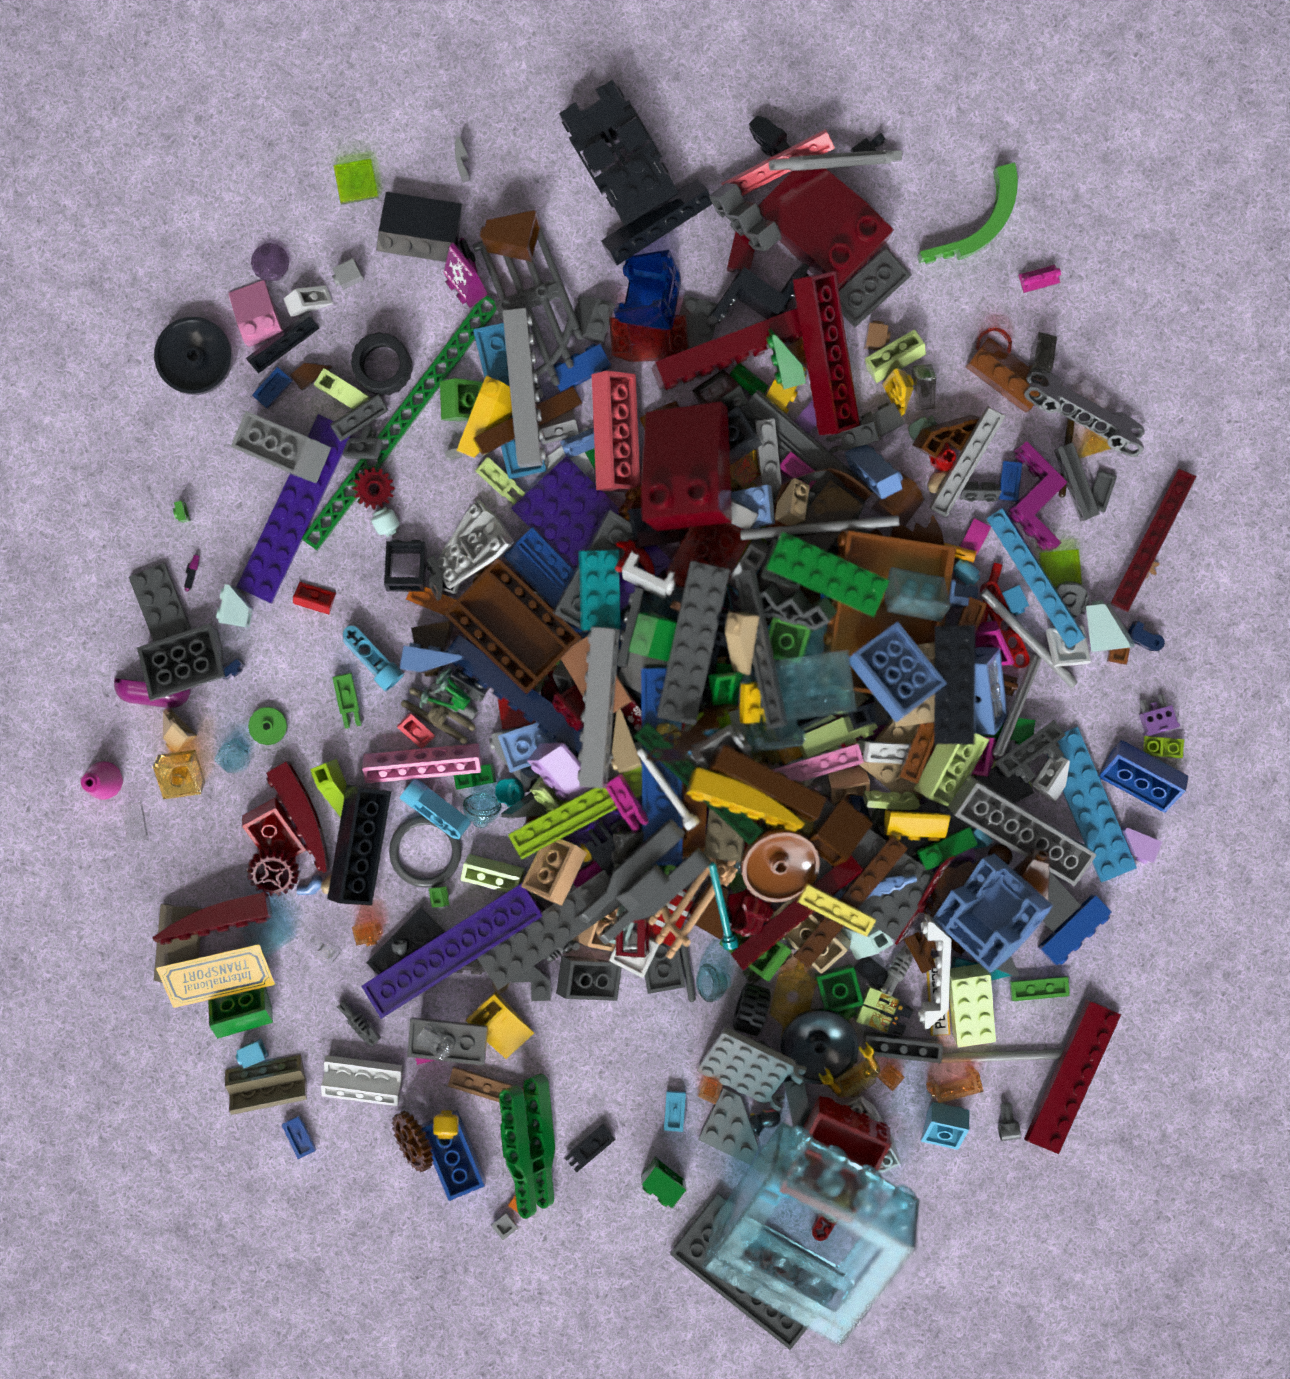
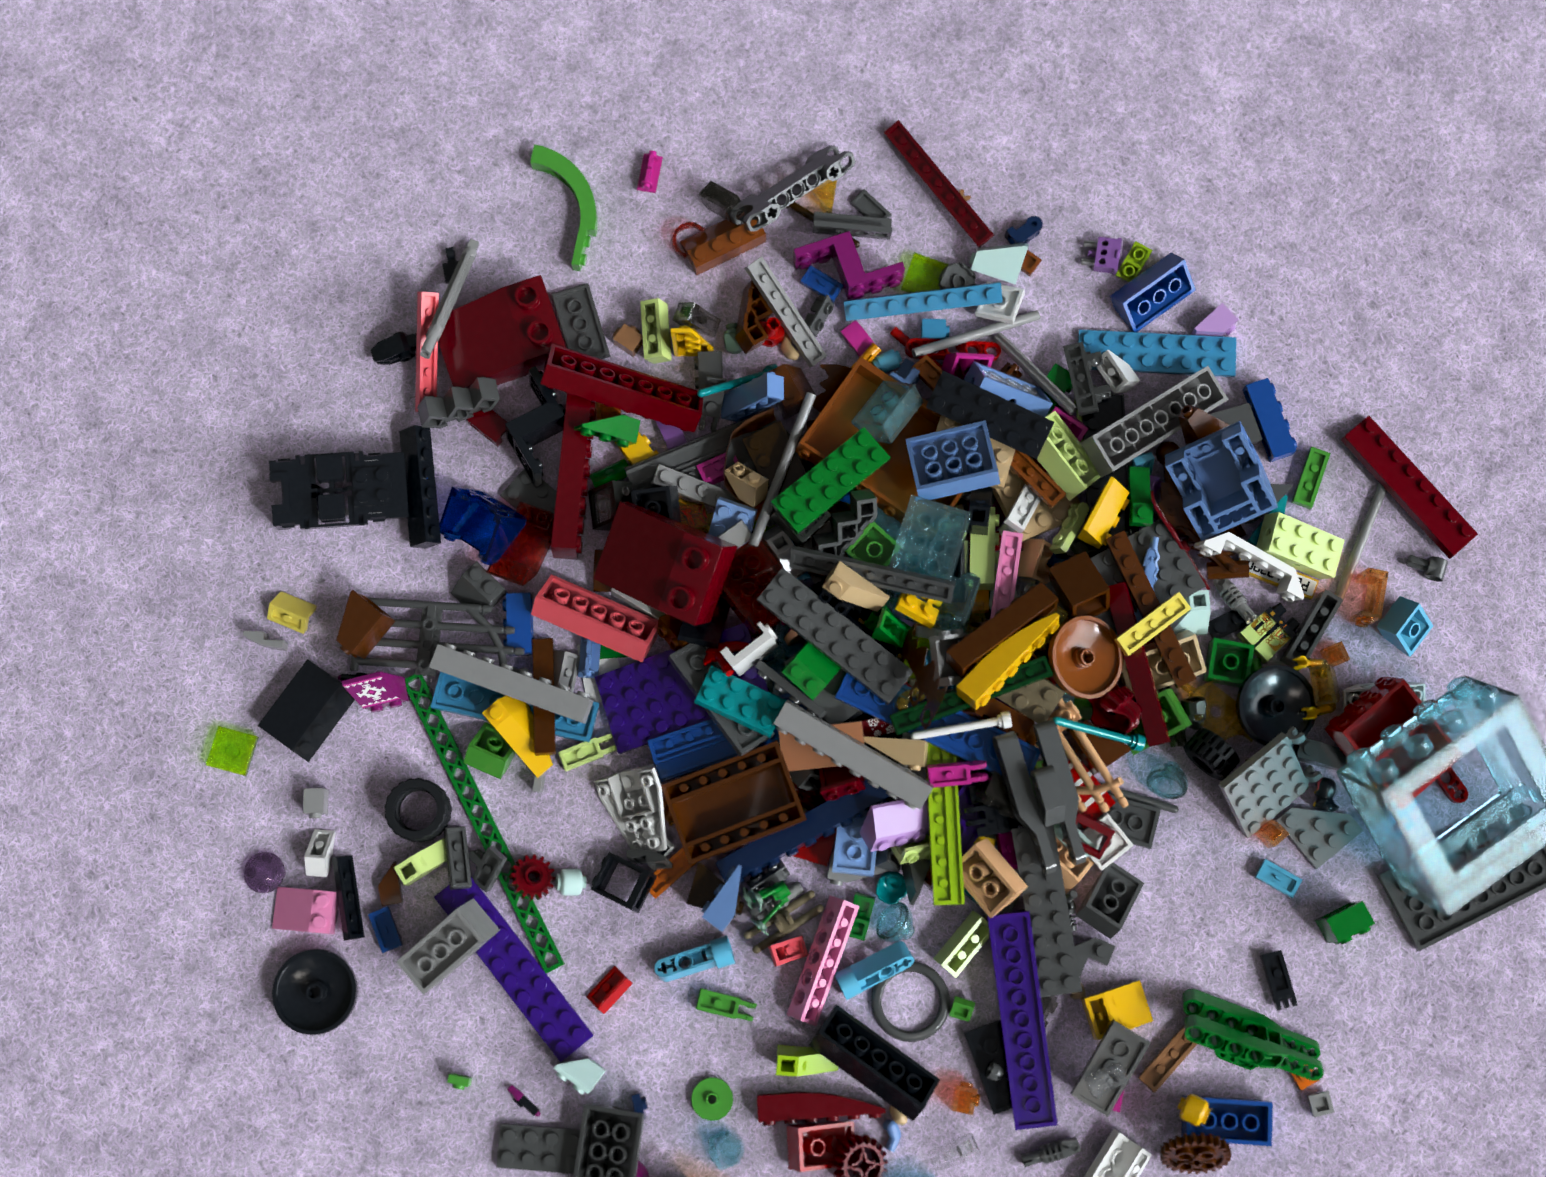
camera: 60 degrees left, 10 degrees down
(496, 168) = (290, 612): none -> light yellow panel
(782, 979) = (1196, 710): none -> pearl dark grey rock
(882, 451) = (733, 383): none -> teal piece

